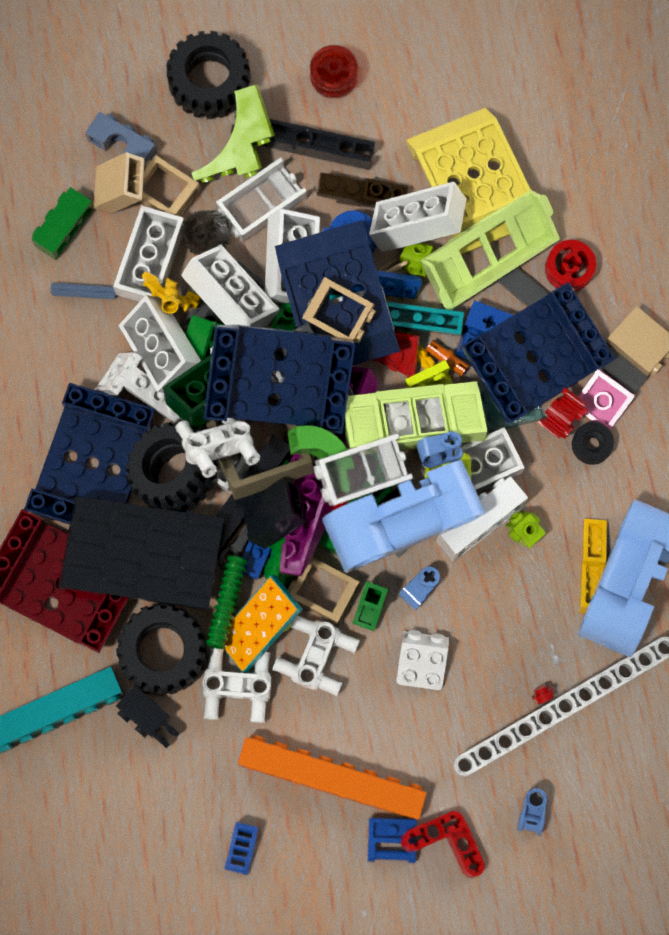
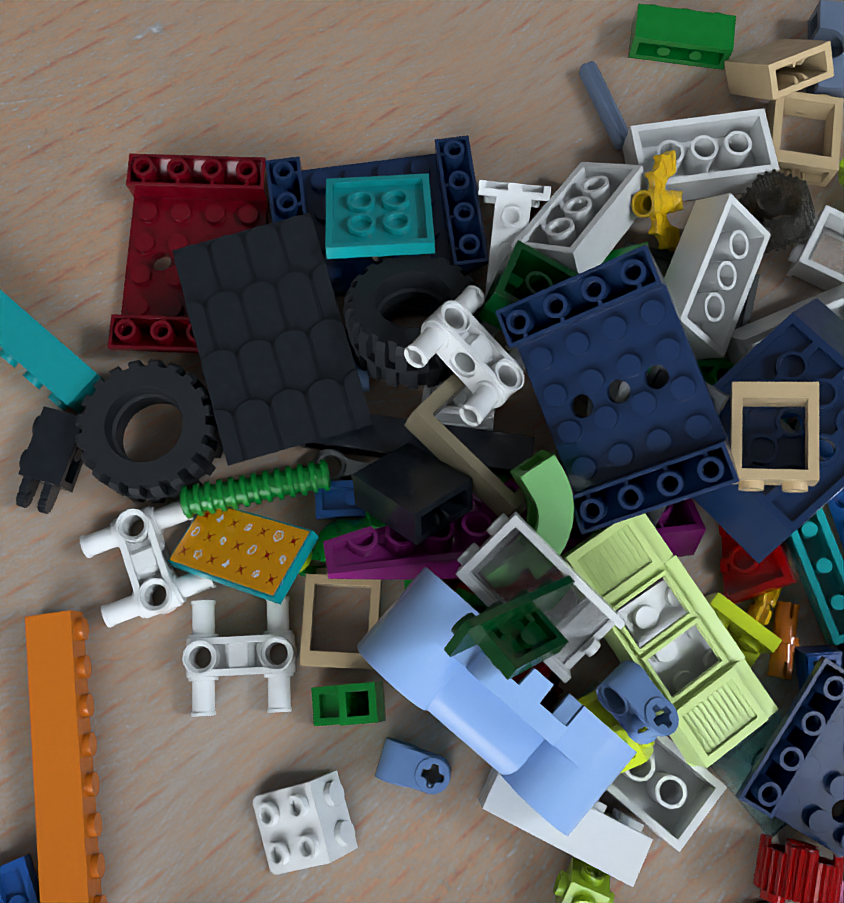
camera: 65 degrees right, 0 degrees up
(96, 458) = (379, 216): none -> teal plate
(377, 485) = (514, 632): none -> dark green bracket

